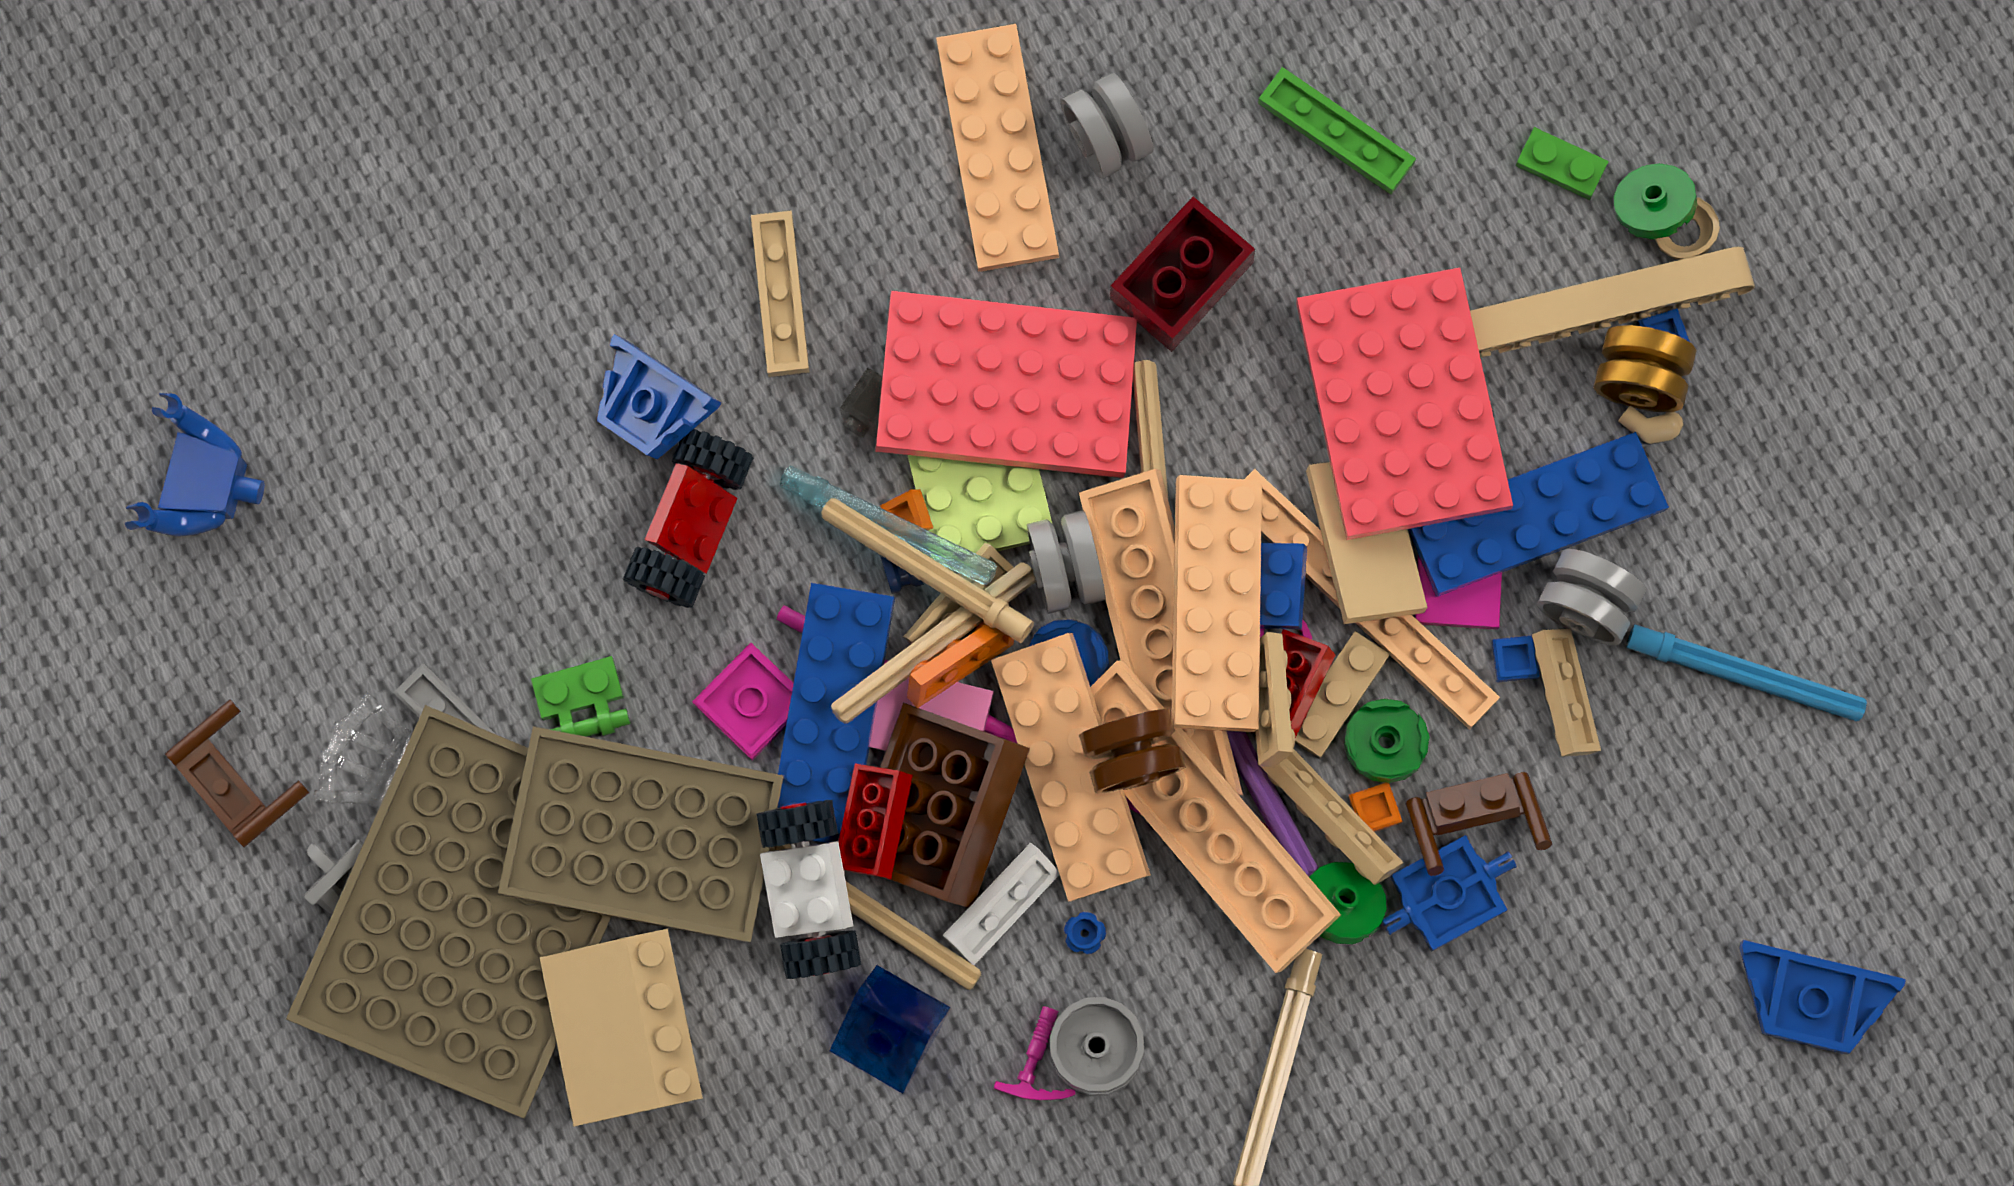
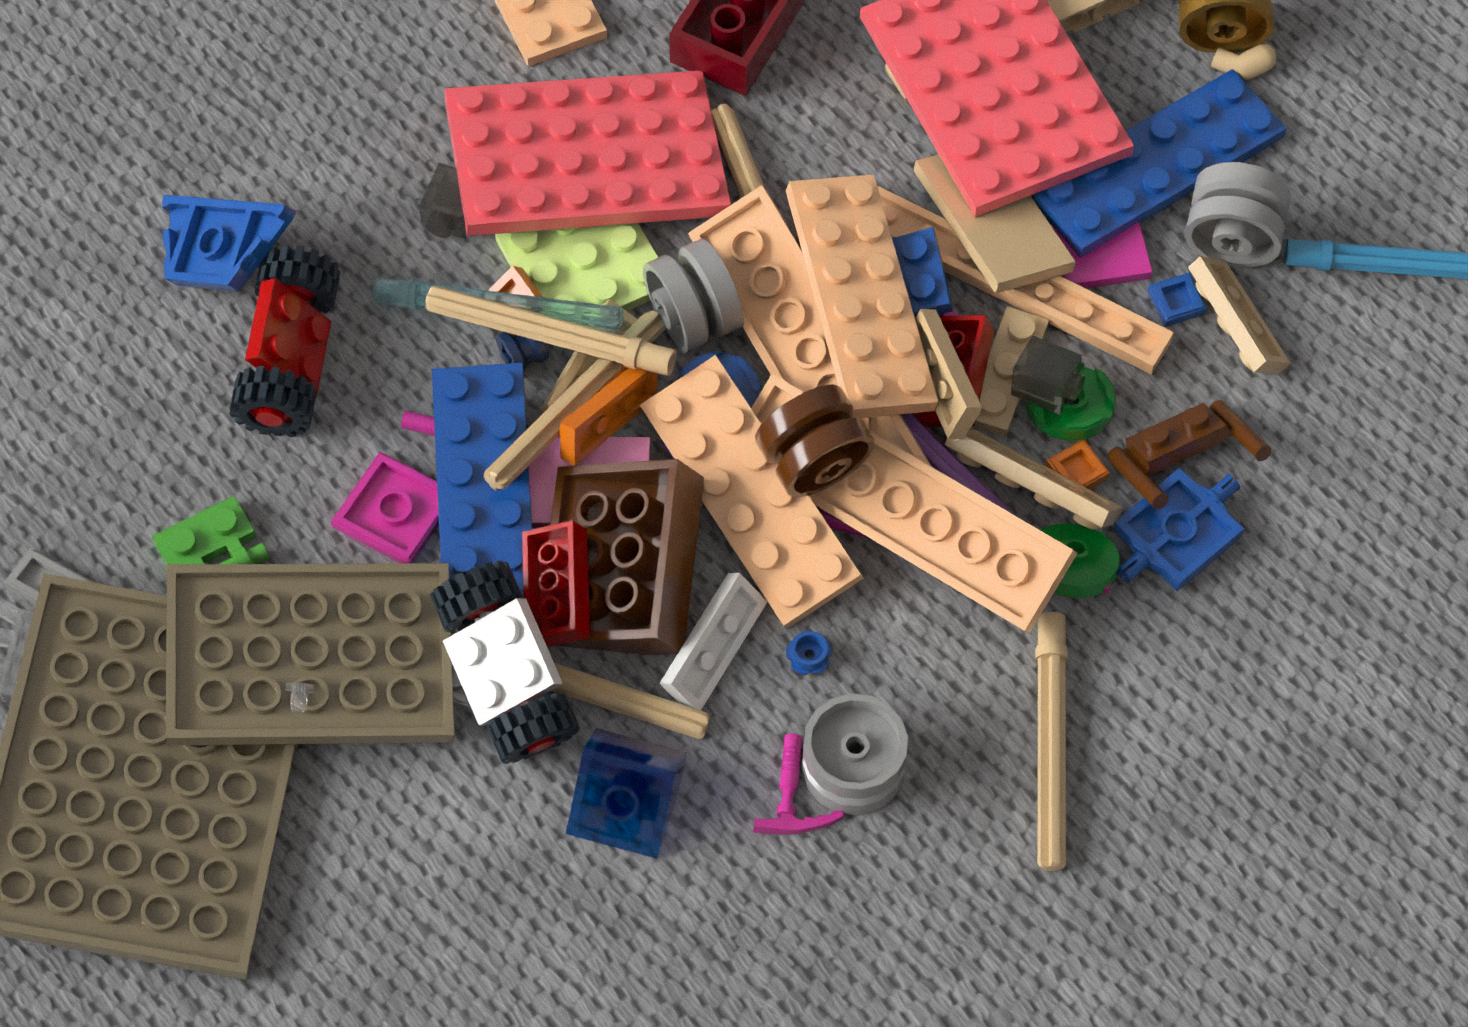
camera: 20 degrees left, 15 degrees down
(620, 1027) = (334, 852): tan slope -> none
(622, 879) = (299, 695): none -> clear piece
(780, 293) = (329, 123): tan plate -> none
(1368, 720) = (1047, 375): none -> clear smoke brick

